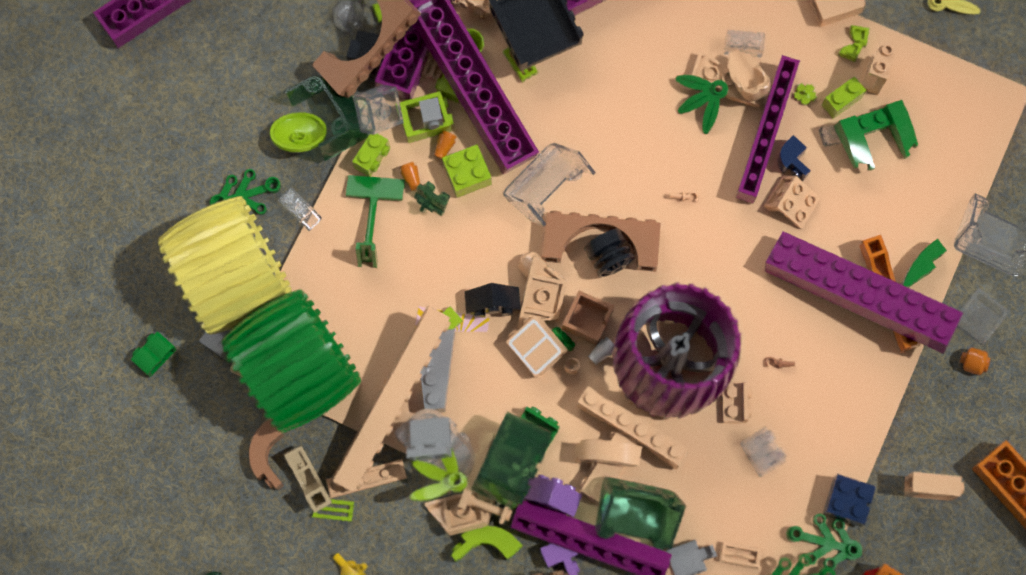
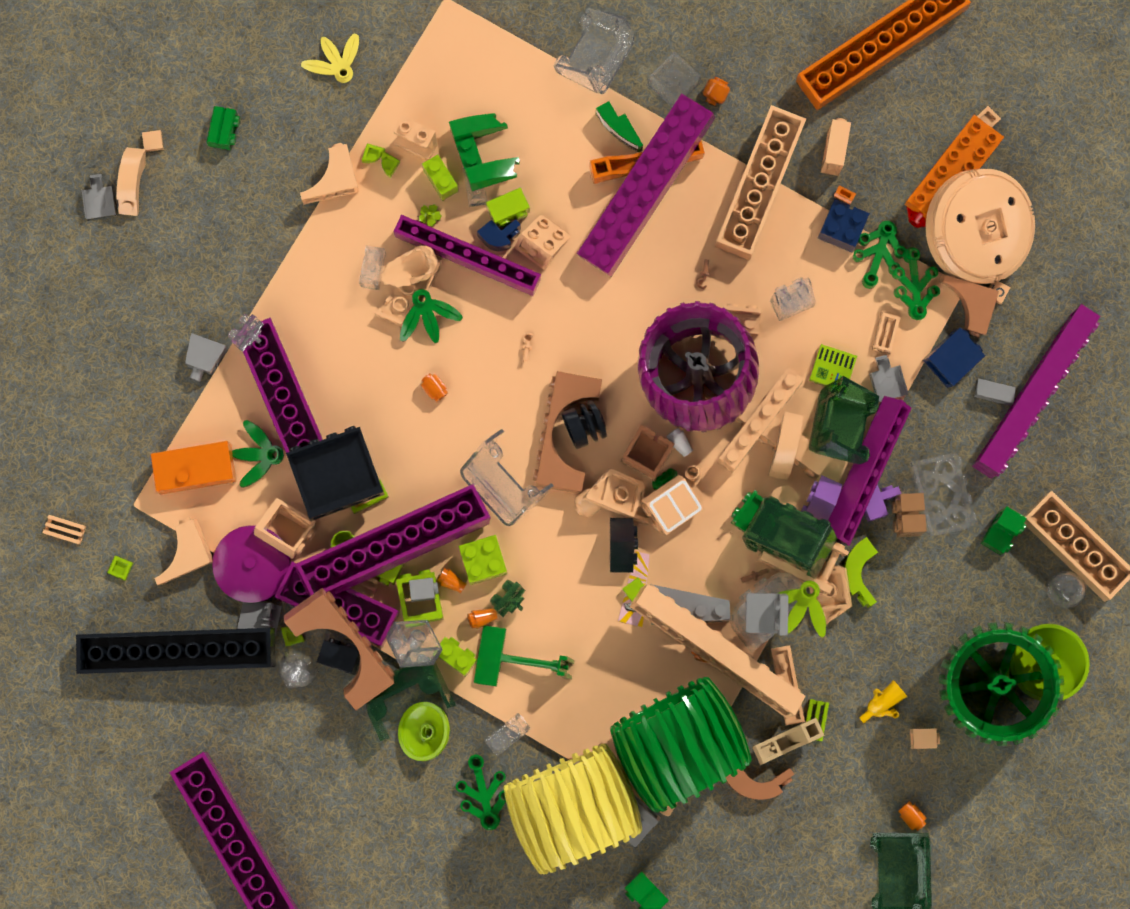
camera: 90 degrees left, 5 degrees up
(473, 435) = (754, 575): none -> nougat hand
(633, 111) = (434, 387): none -> orange brick
(699, 500) = (831, 365): none -> lime tile
(821, 163) = (508, 207): none -> lime brick
(882, 499) = (844, 195): none -> orange slope
(883, 410) = (760, 182): none -> light nougat brick

